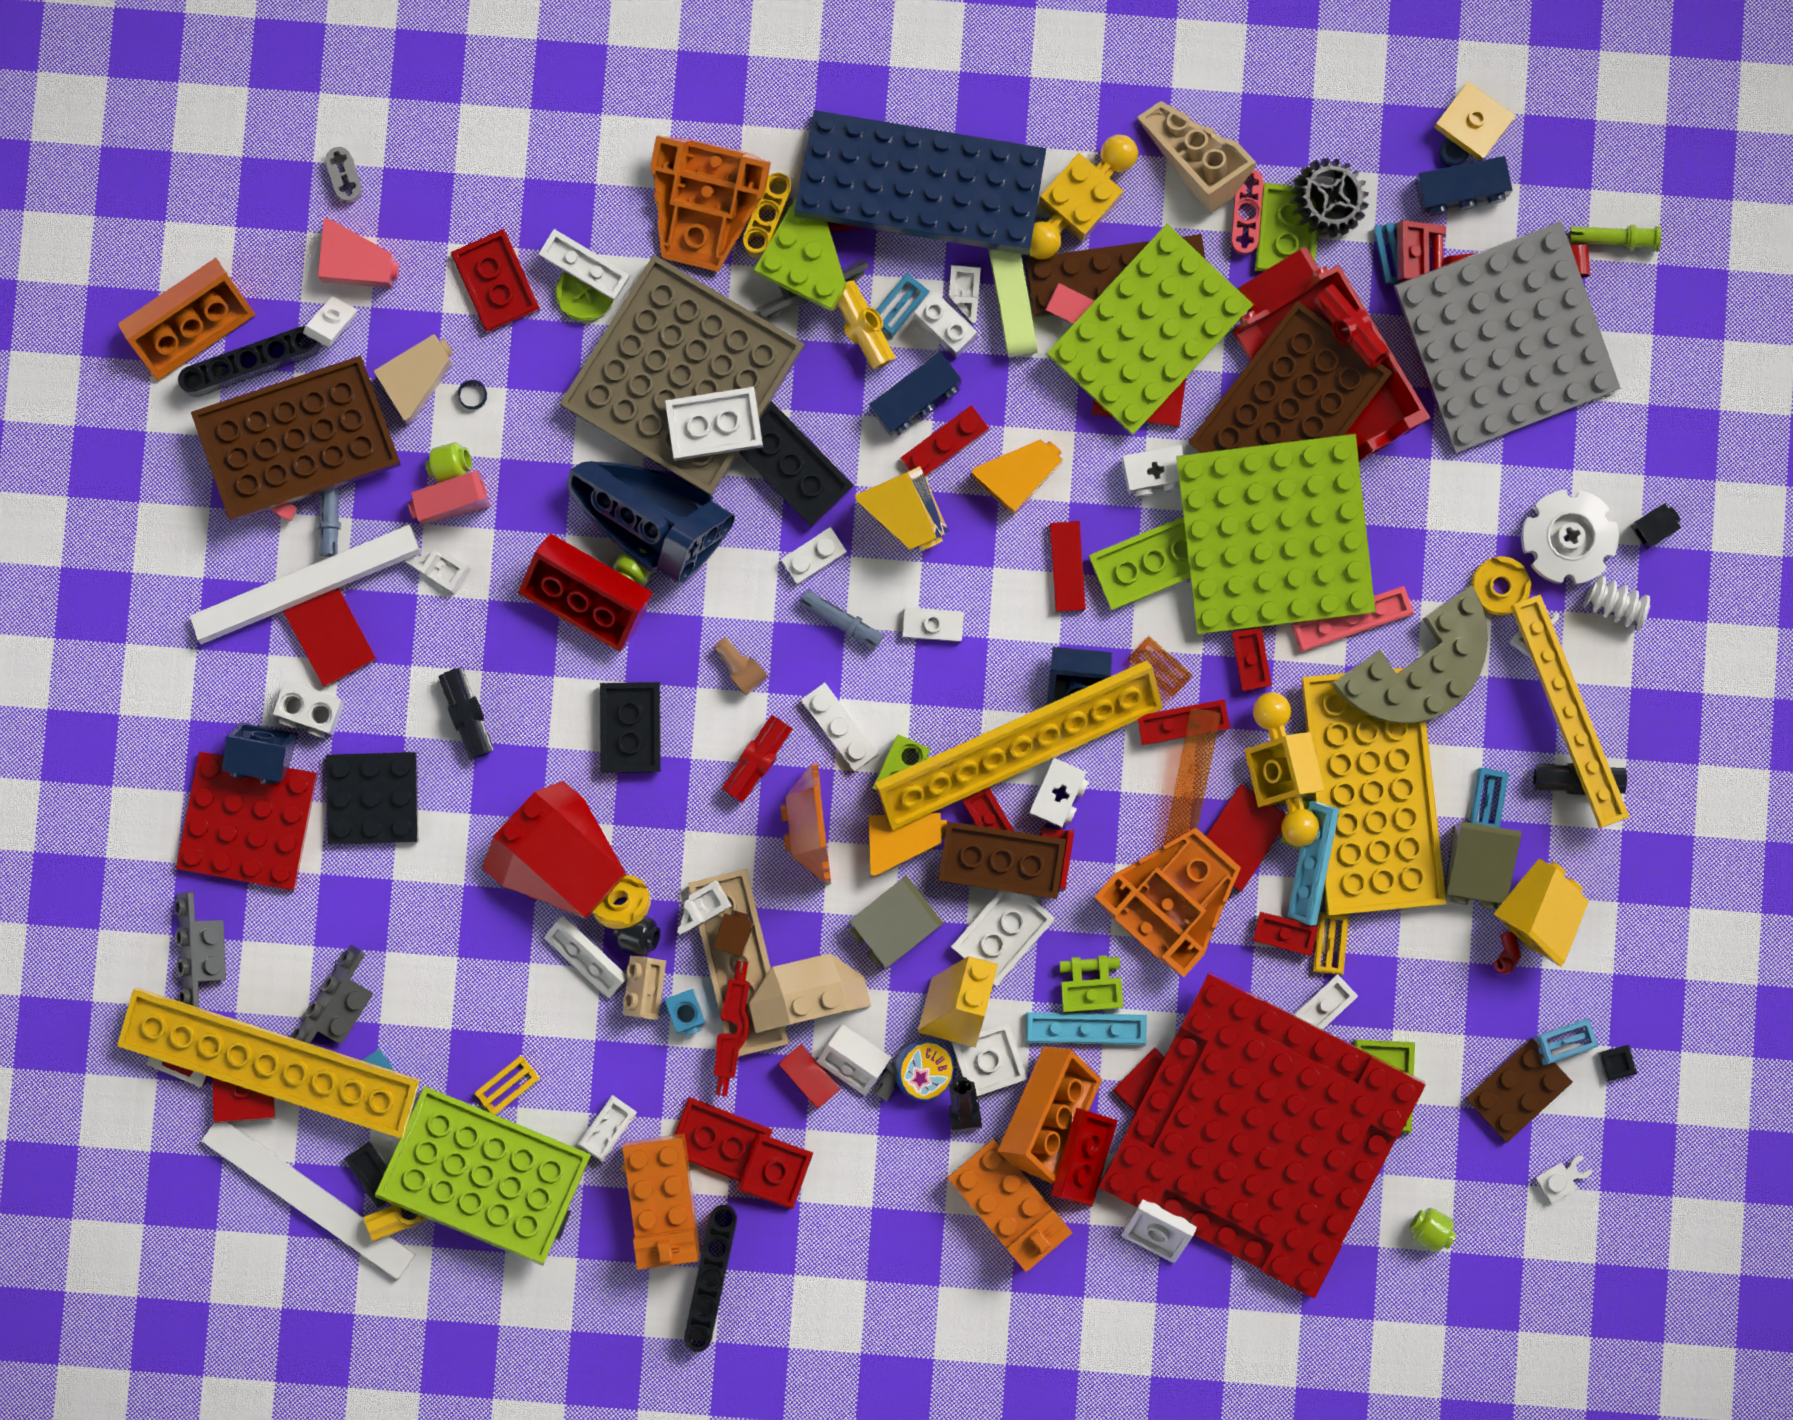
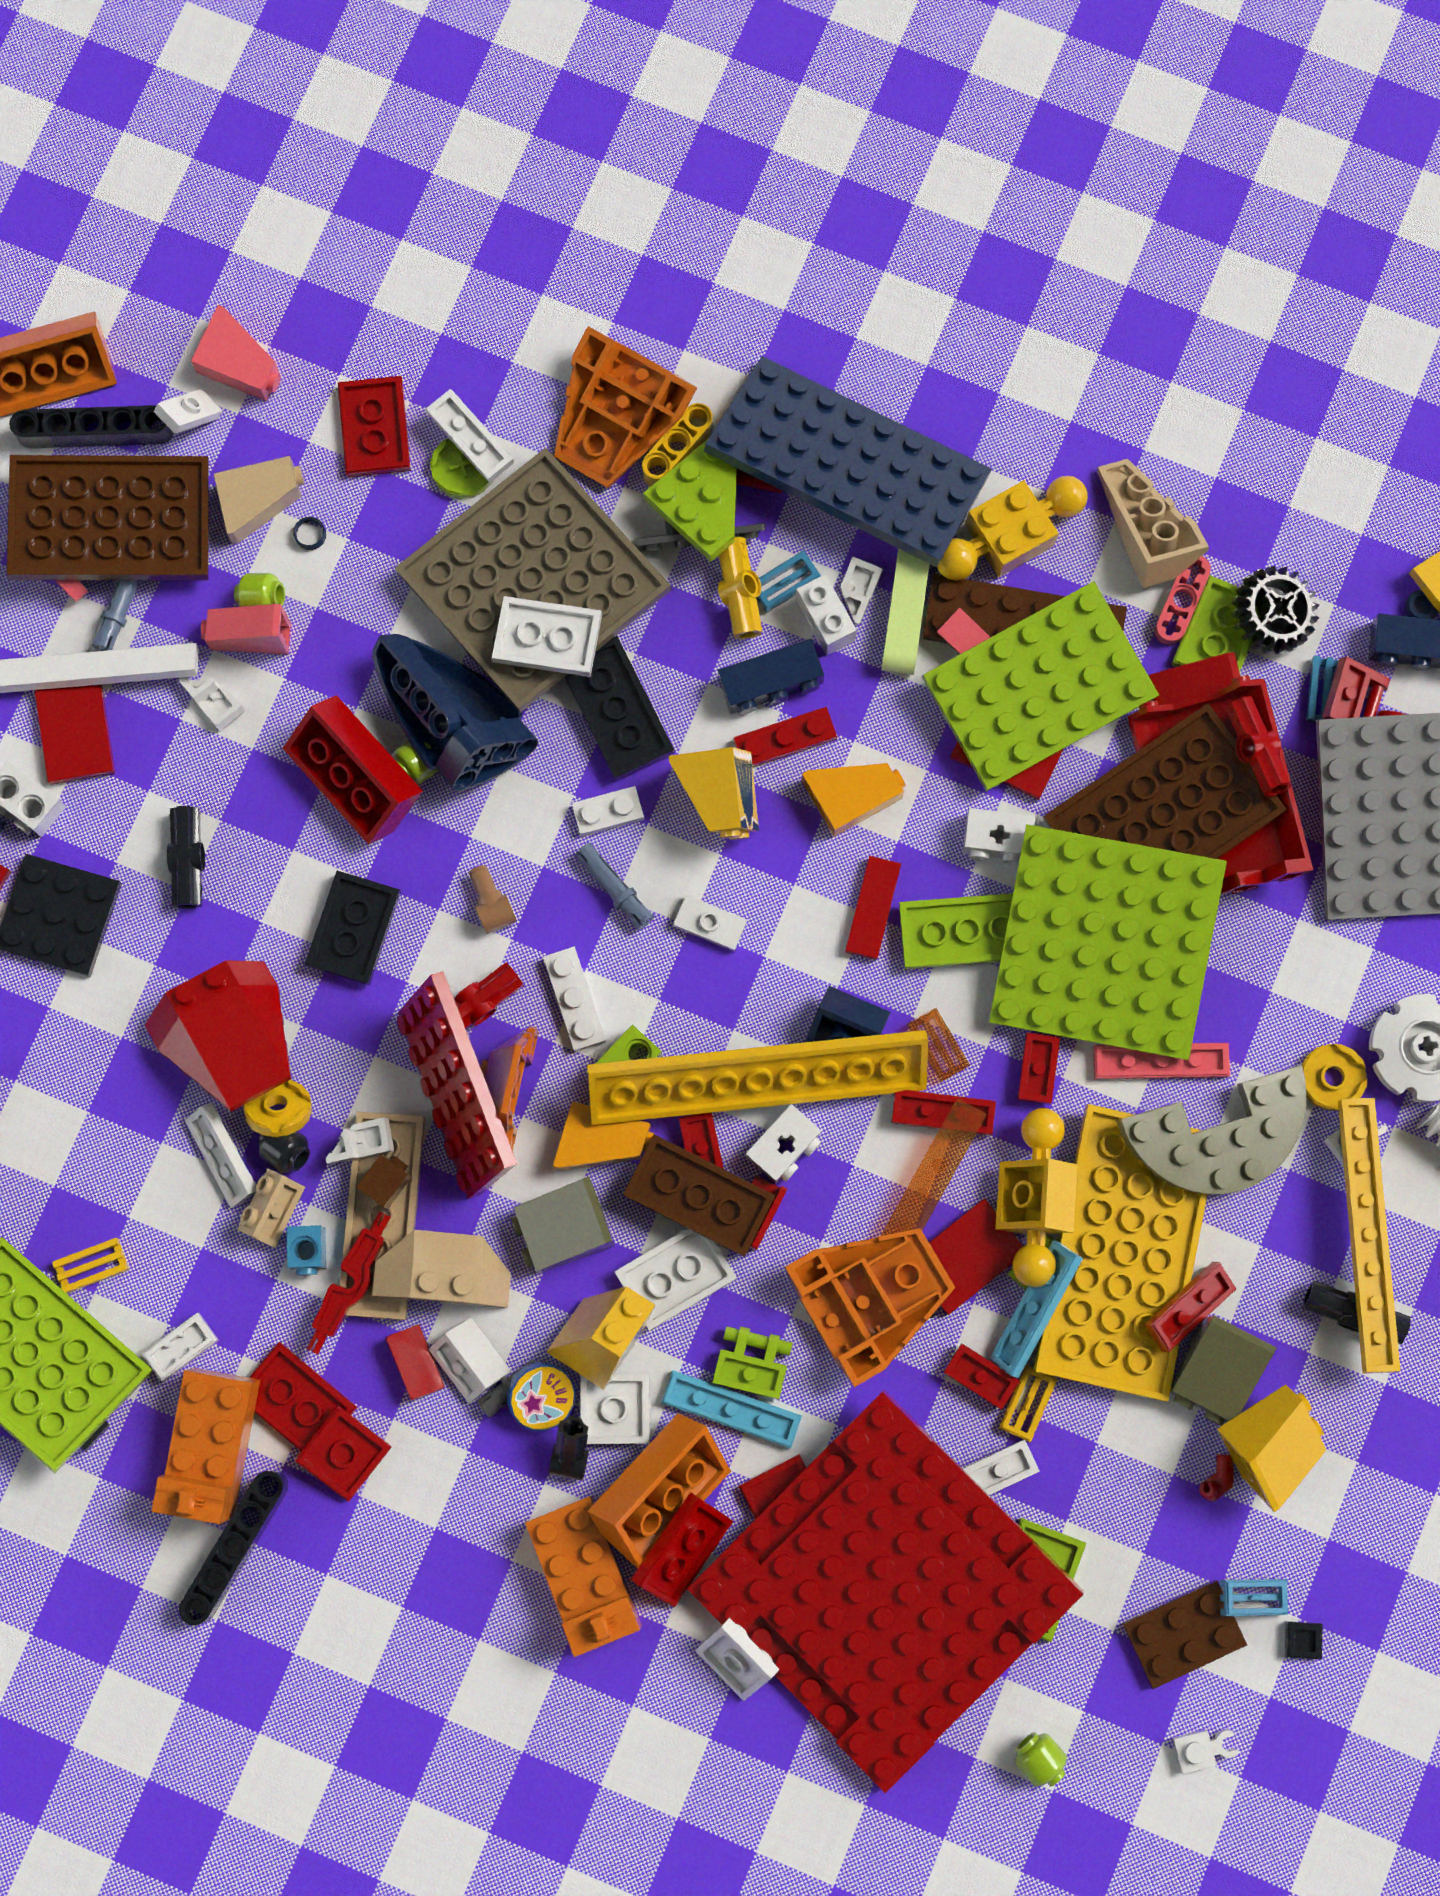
camera: 20 degrees right, 5 degrees down
(350, 173) = (249, 272): light grey beam -> none
(768, 836) = (455, 1086): none -> red plate
(1440, 819) = (1190, 1306): none -> red tile
(1488, 799) = (1261, 1277): dark azure tile -> none

